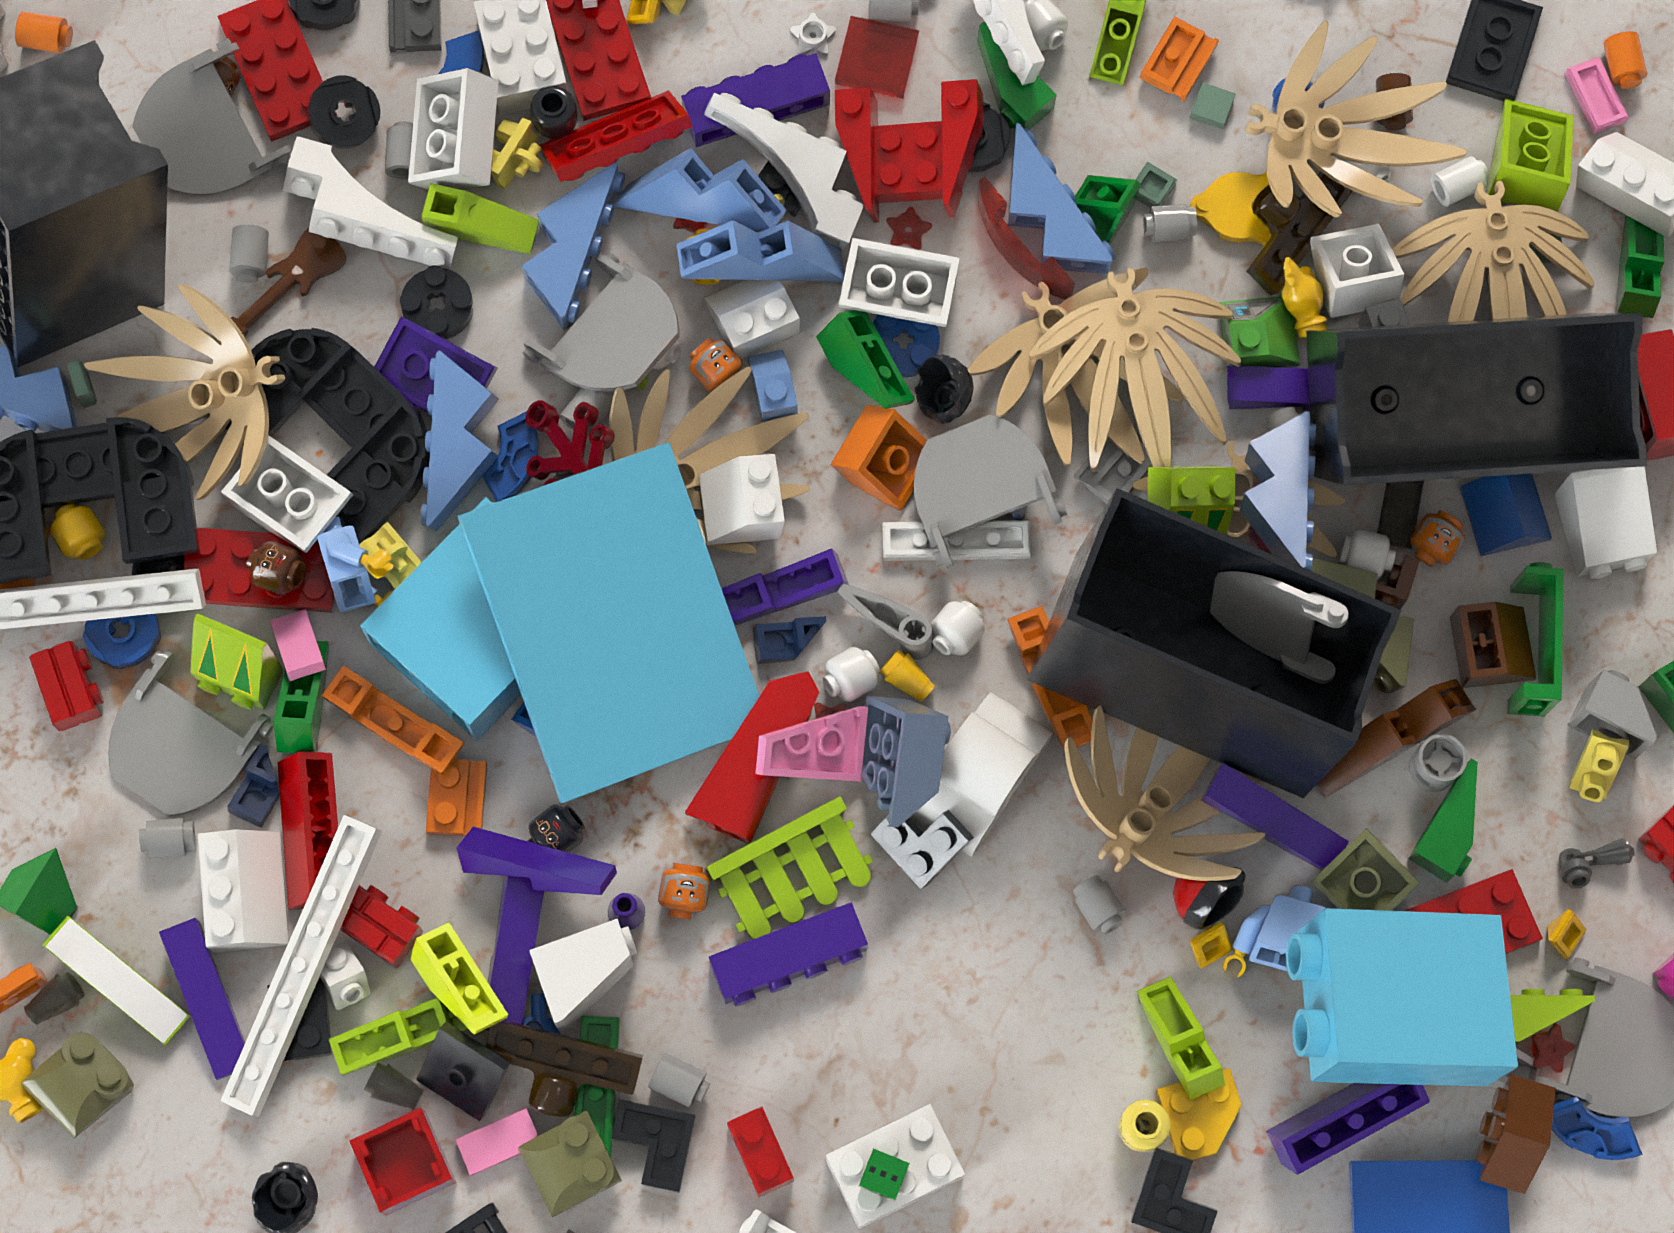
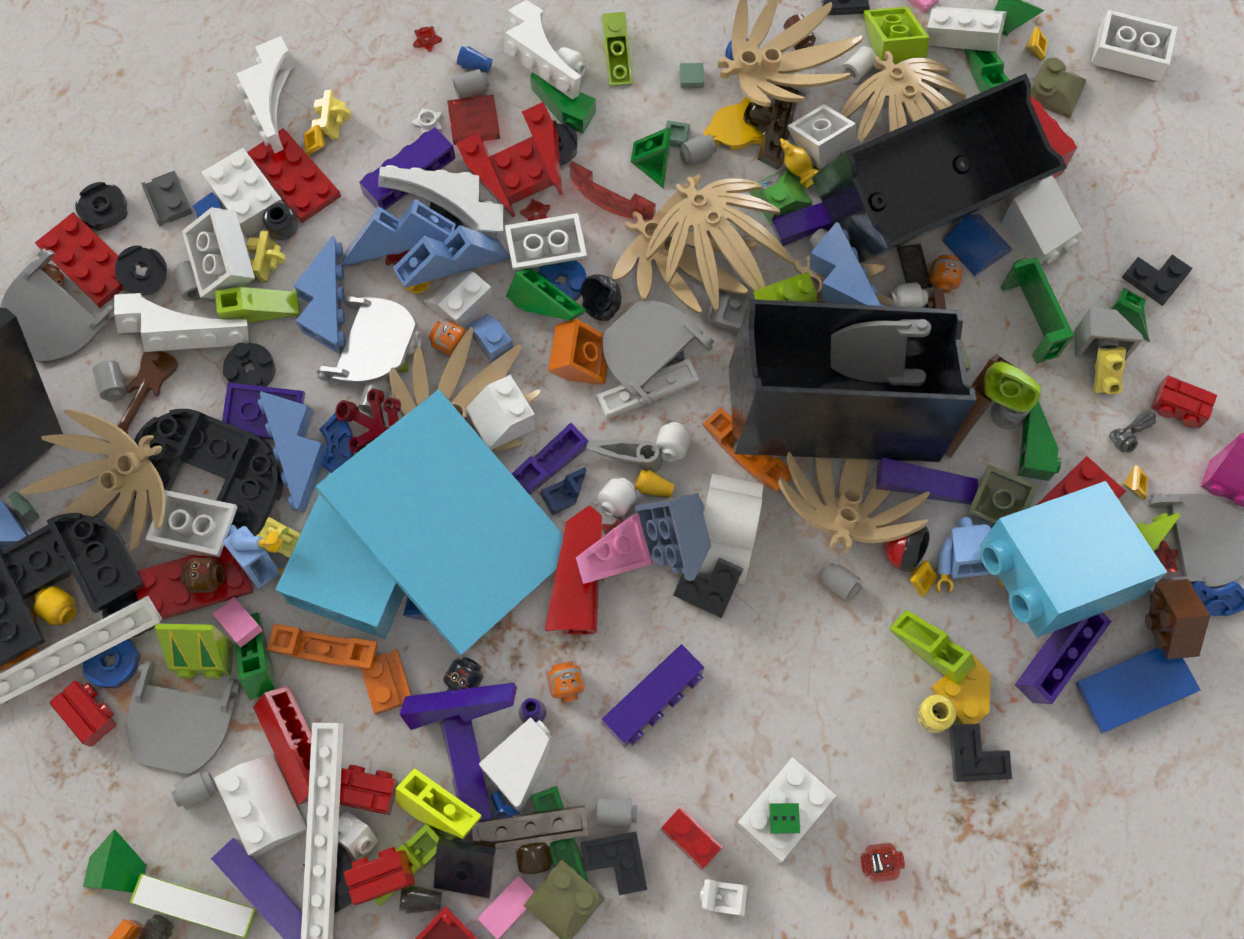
camera: 20 degrees left, 5 degrees down
(257, 791) = (246, 732): dark blue slope -> none
(354, 1038) = (378, 877): none -> red brick
(616, 136) = (326, 221): red plate -> none
(808, 860) = (639, 628): lime fence -> none
(1045, 203) = (617, 165): medium blue slope -> none
(1179, 58) = (659, 55): orange plate -> none
(1439, 737) = (1011, 387): none -> lime piece
(1492, 644) = (1007, 324): reddish brown slope -> none

